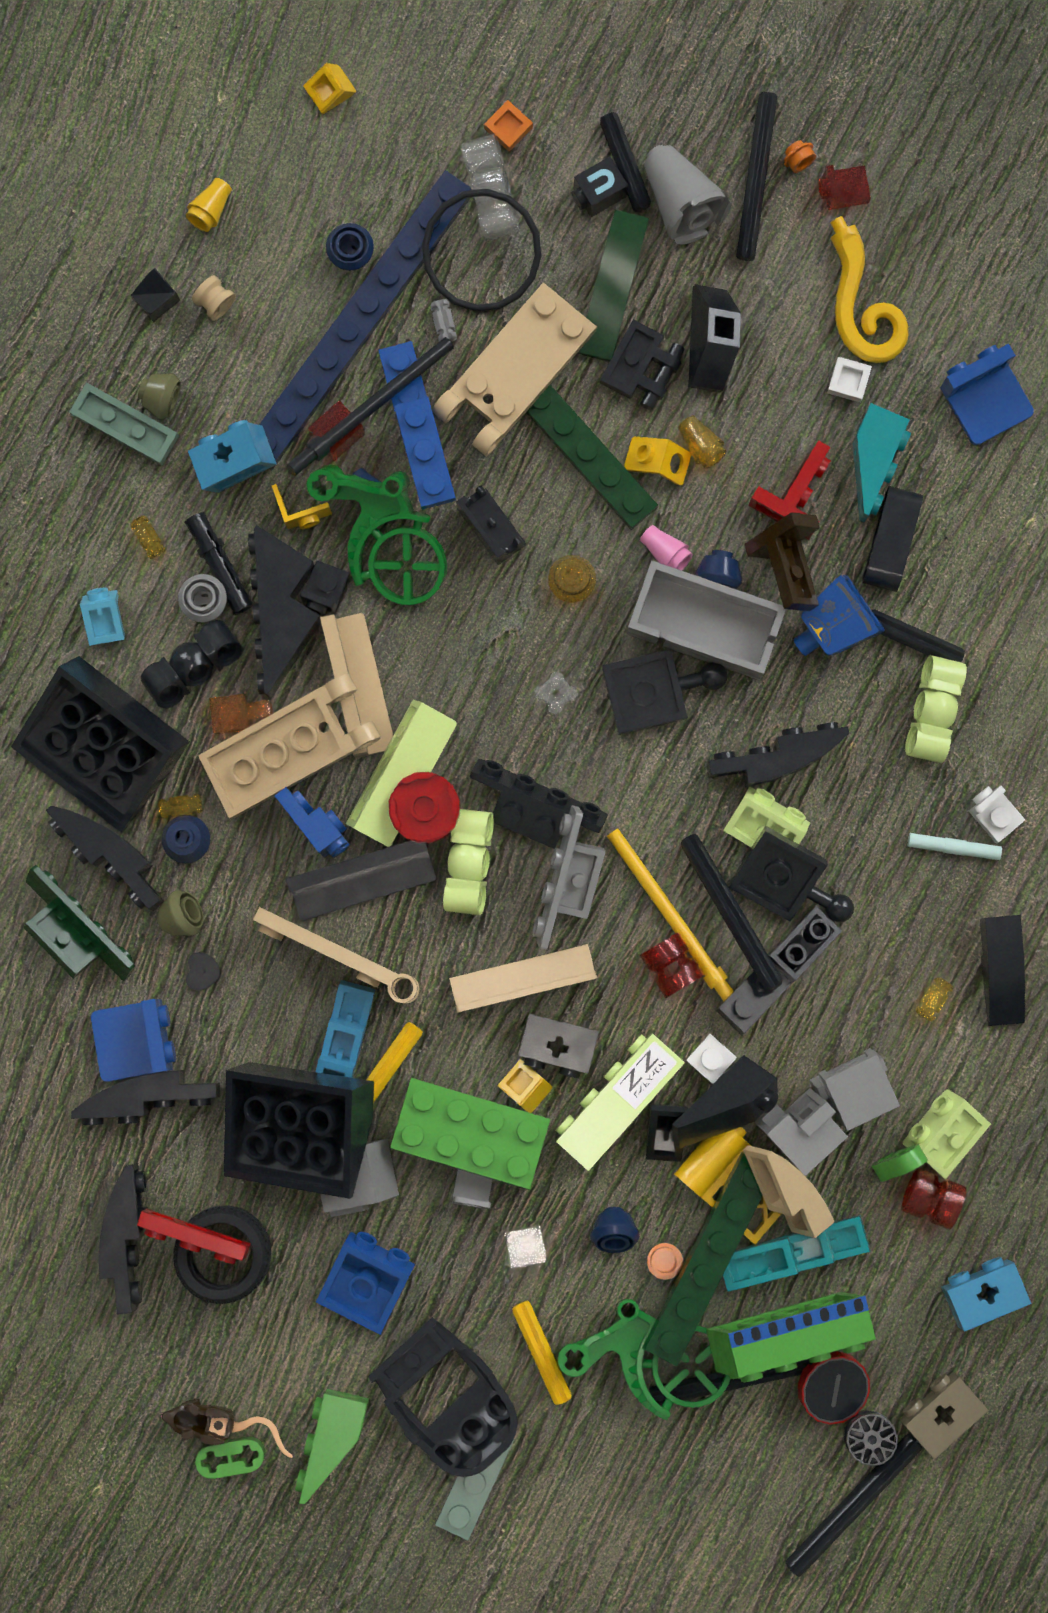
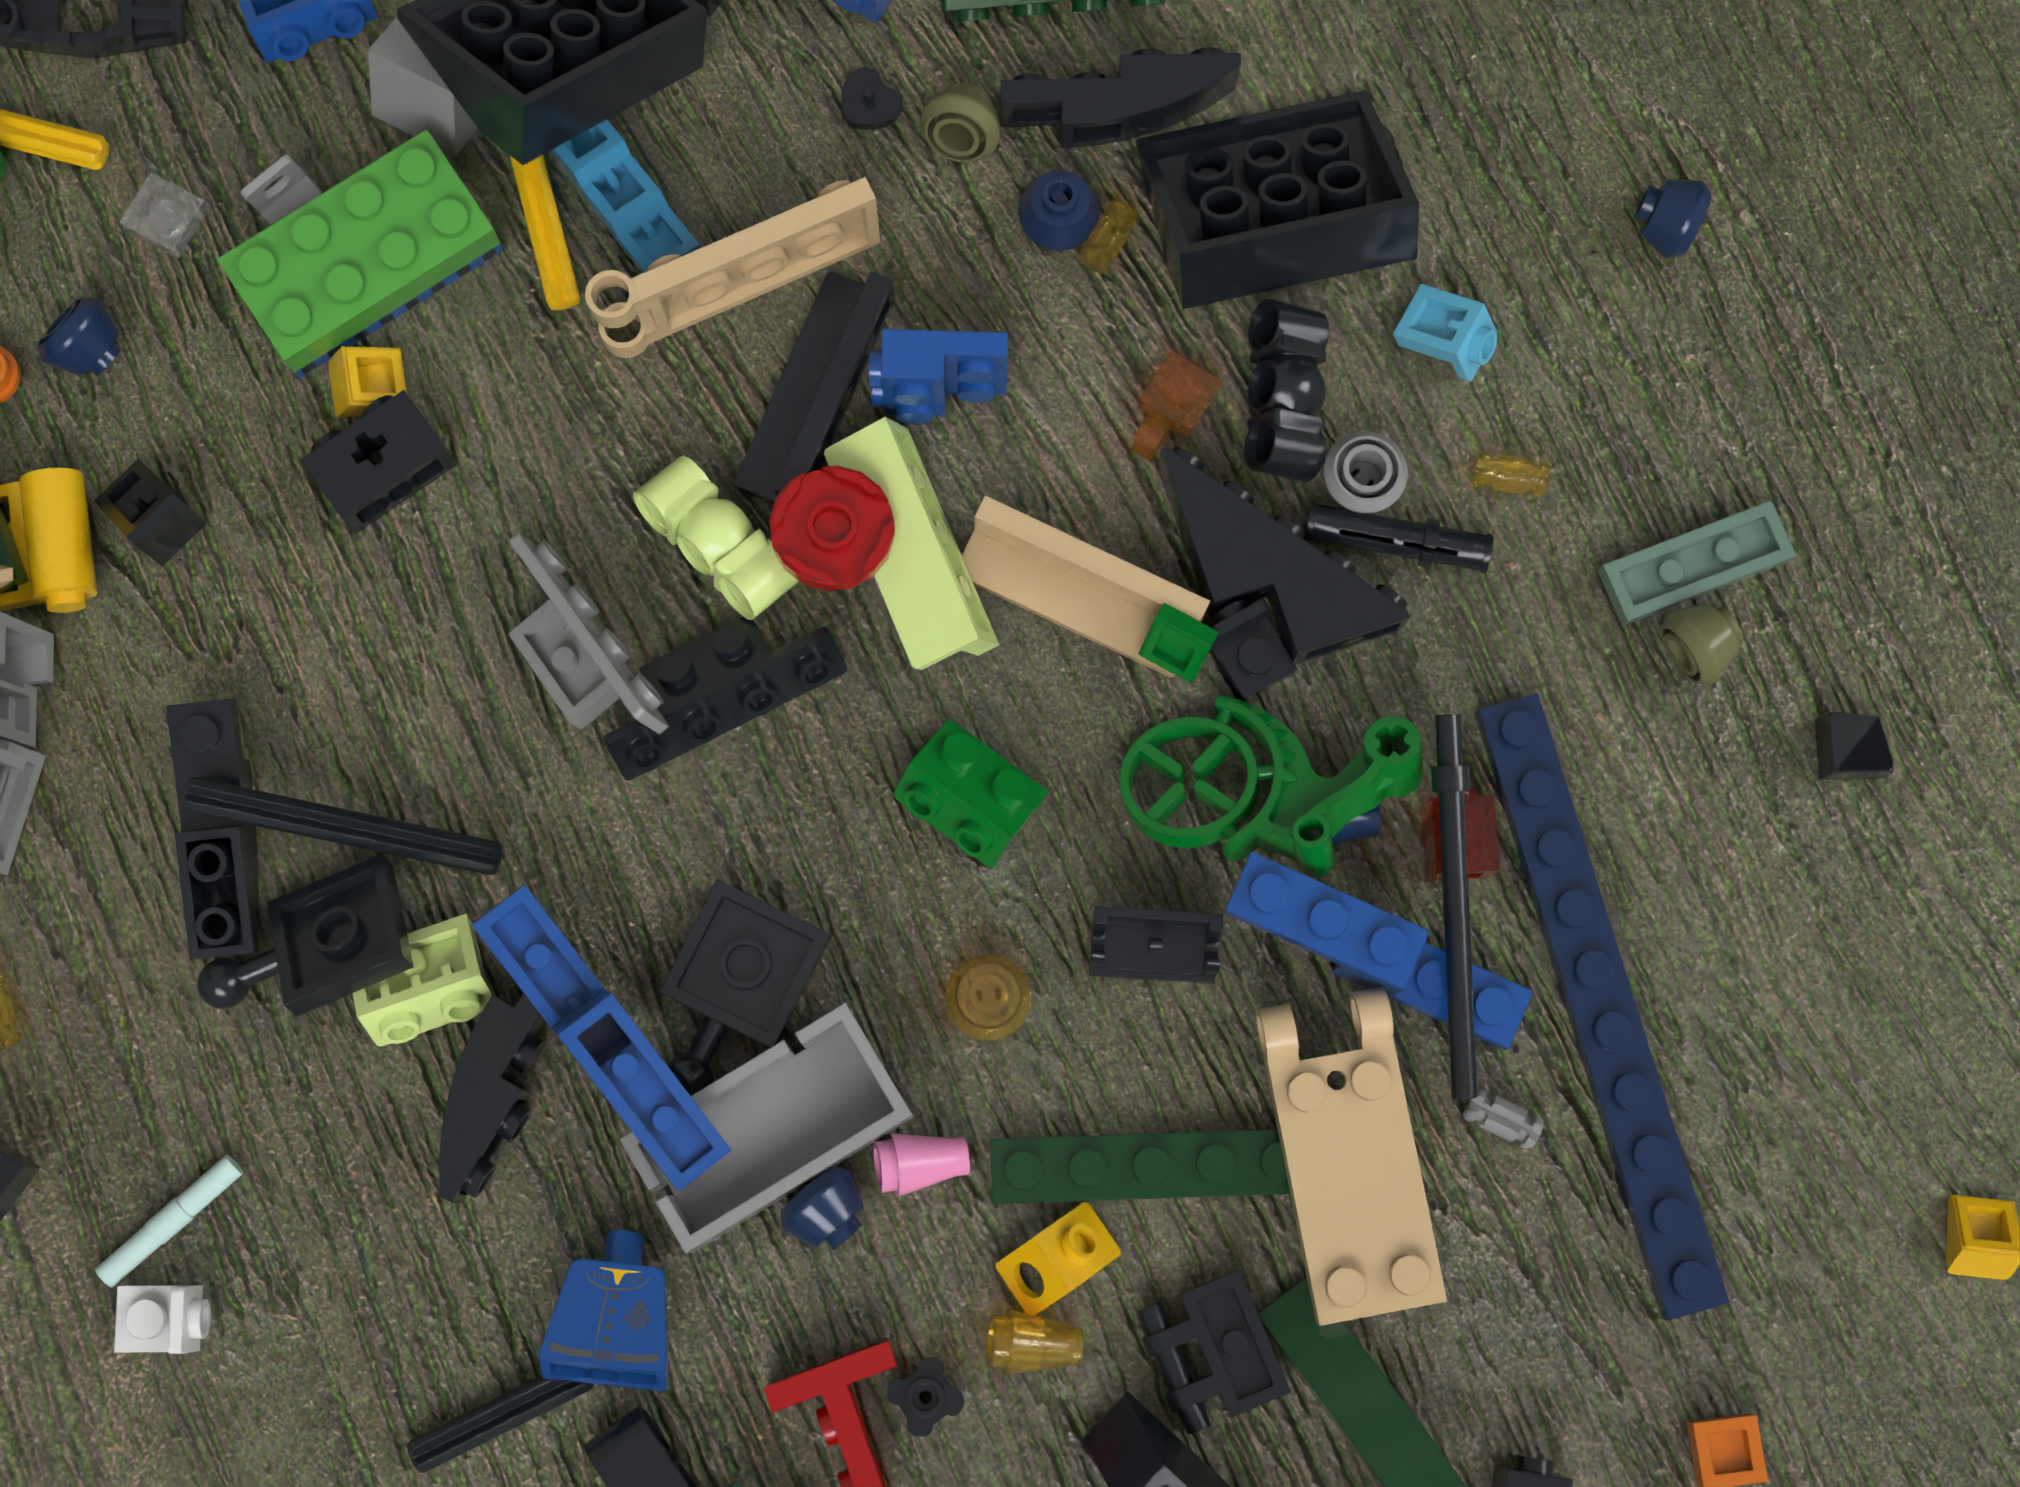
camera: 125 degrees right, 5 degrees down
(208, 205) = (1931, 923): yellow cone -> none
(213, 298) = (1786, 822): tan wheel -> none
(231, 456) = (1535, 663): dark azure brick -> none
(284, 749) = (1068, 415): tan hinge -> none
(305, 518) = (1395, 675): yellow bracket -> none
(349, 246) = (1732, 1062): dark blue cone -> none
(349, 618) = (1178, 643): none -> green tile
(486, 168) = (1652, 1345): clear piece -> none
(490, 657) = (969, 793): none -> green bracket
(522, 978) = (500, 486): tan panel -> none
(536, 242) = (1552, 1355): black piece -> none
(556, 682) = (835, 831): clear plate -> none
(619, 1101) = (237, 479): yellowish green brick -> none
(664, 954) = (337, 690): clear red wheel -> none
(711, 1058) = (187, 648): white plate -> none
(714, 976) = (289, 741): yellow bar -> none
(728, 715) = (601, 1038): none -> blue bracket
(728, 1104) = (94, 615): black slope -> none
(762, 478) = (923, 1415): none -> black plate
(784, 548) = (748, 1315): dark brown bracket -> none
(935, 709) = (372, 1355): yellowish green piece -> none

